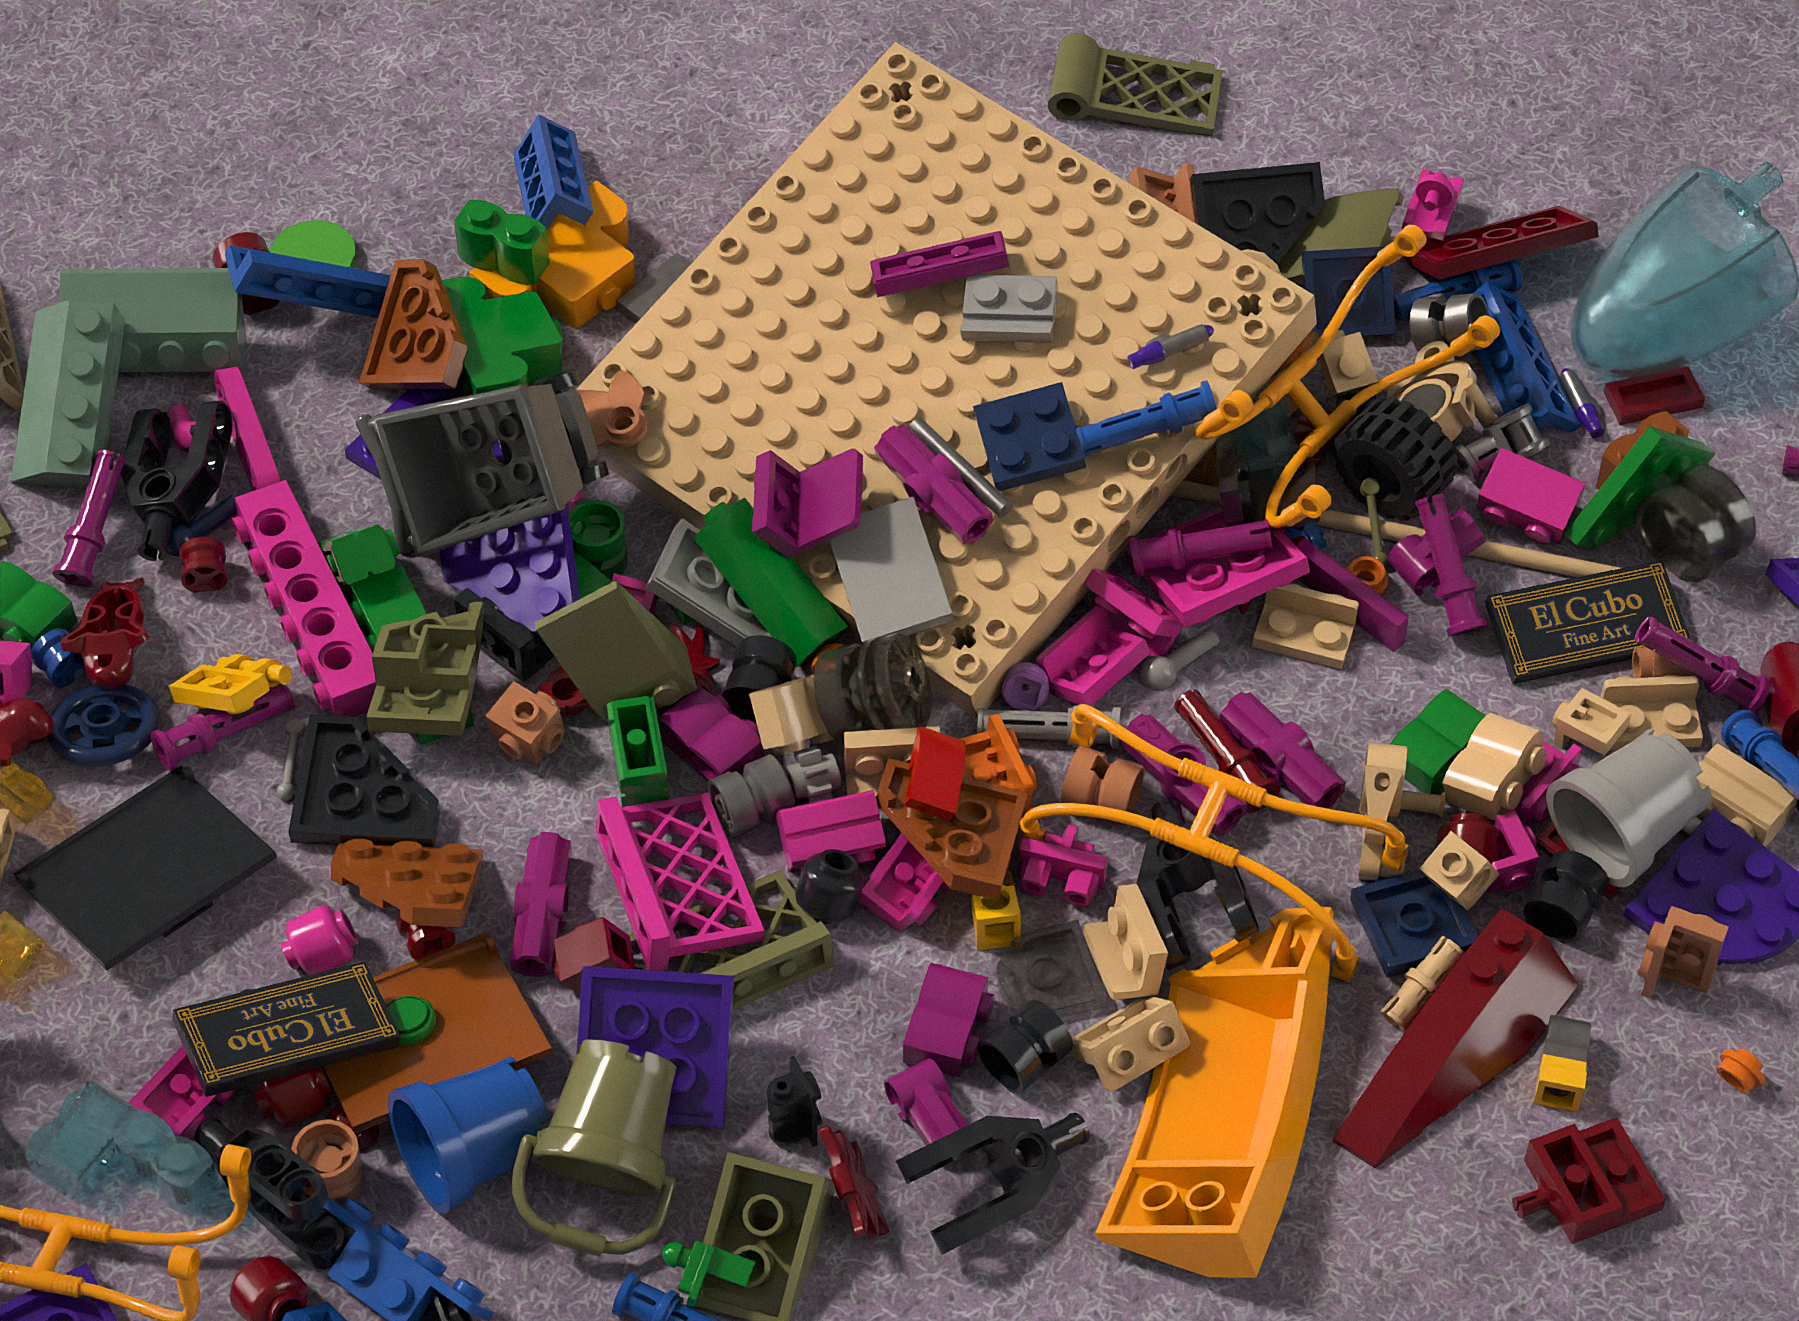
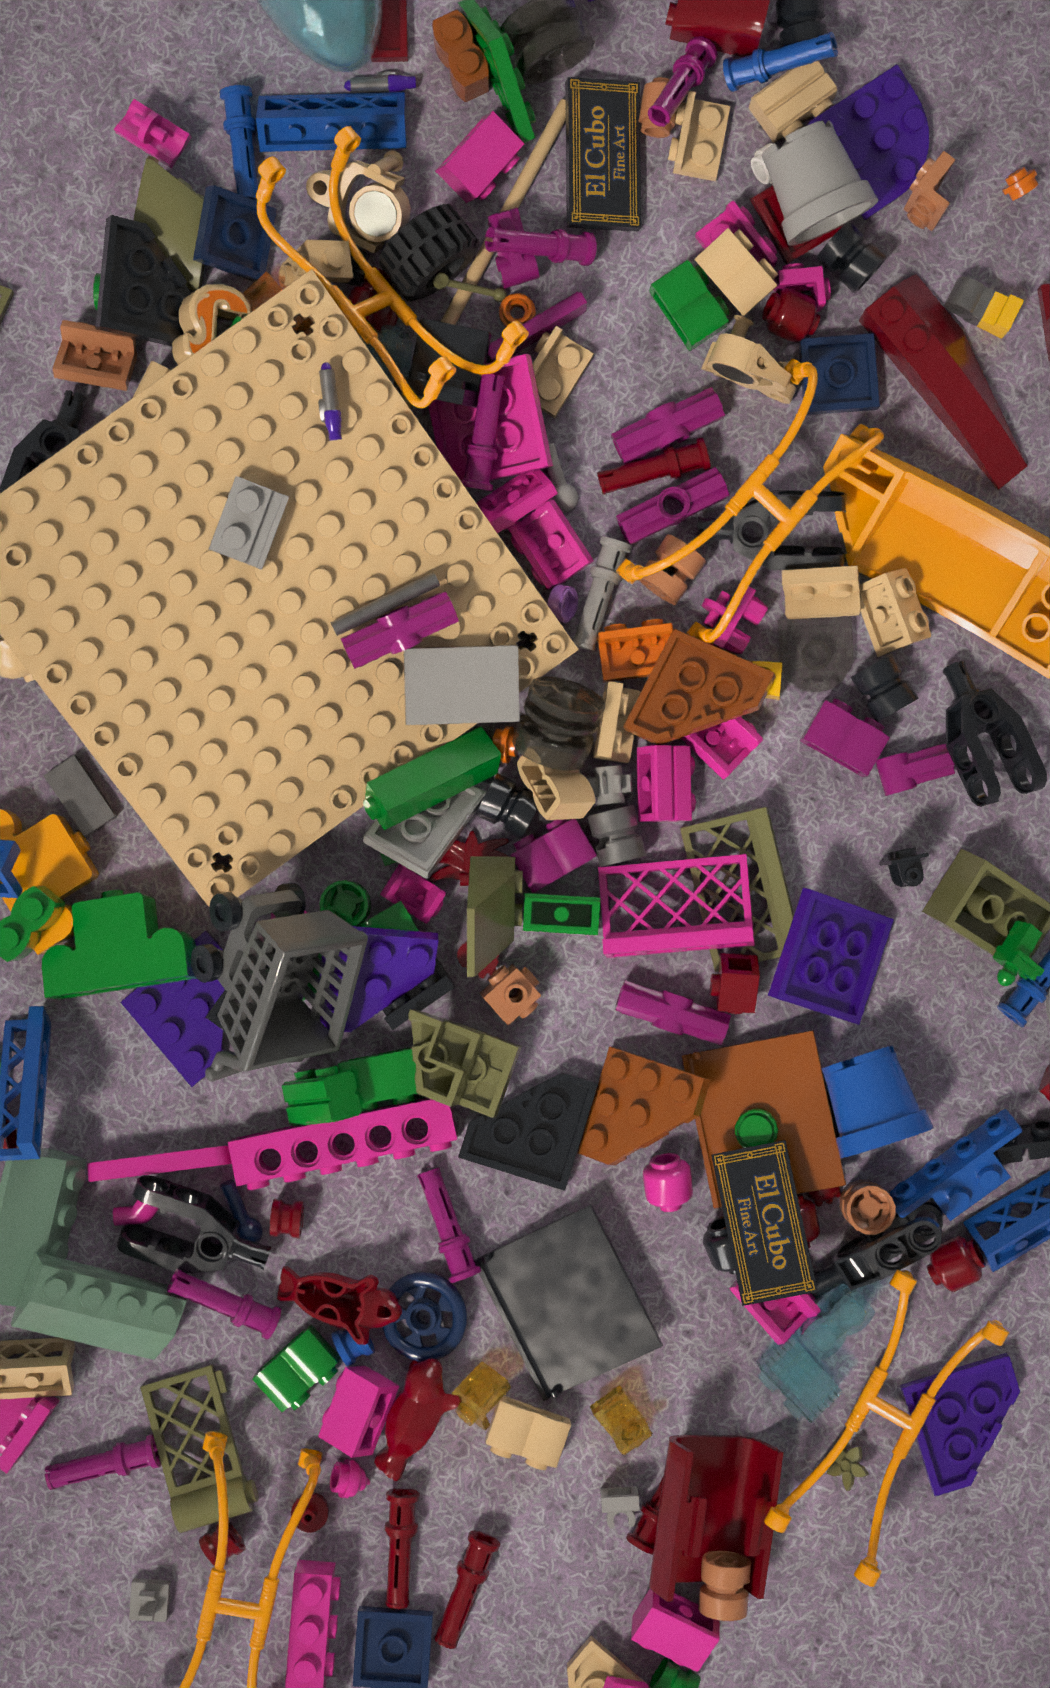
camera: 75 degrees left, 35 degrees up
(230, 684) = (426, 1223): yellow plate -> none
(294, 729) = (457, 1169): light grey hinge -> none
(416, 333) = (103, 1013): dark orange plate -> none
(605, 1137) = (911, 1008): olive piece -> none
(614, 409) = (235, 871): nougat plate -> none
(807, 506) = (389, 733): magenta bracket -> none
(830, 886) = (717, 796): black head -> none
(852, 1184) = (971, 838): dark red piece -> none
(935, 773) = (659, 693): red slope -> none
(939, 263) = (190, 568): magenta tile -> none
(1029, 436) = (376, 541): dark blue plate -> none
(1169, 414) = (399, 415): blue pin -> none
(1421, 983) = (900, 385): tan pin -> none
(1444, 318) = (299, 152): flat silver wheel -> none
(1459, 871) = (831, 329): tan brick -> none
(1503, 241) = (209, 90): dark red tile -> none
(1512, 432) = (418, 159): flat silver connector -> none
(1590, 722) = (704, 186): tan bracket -> none

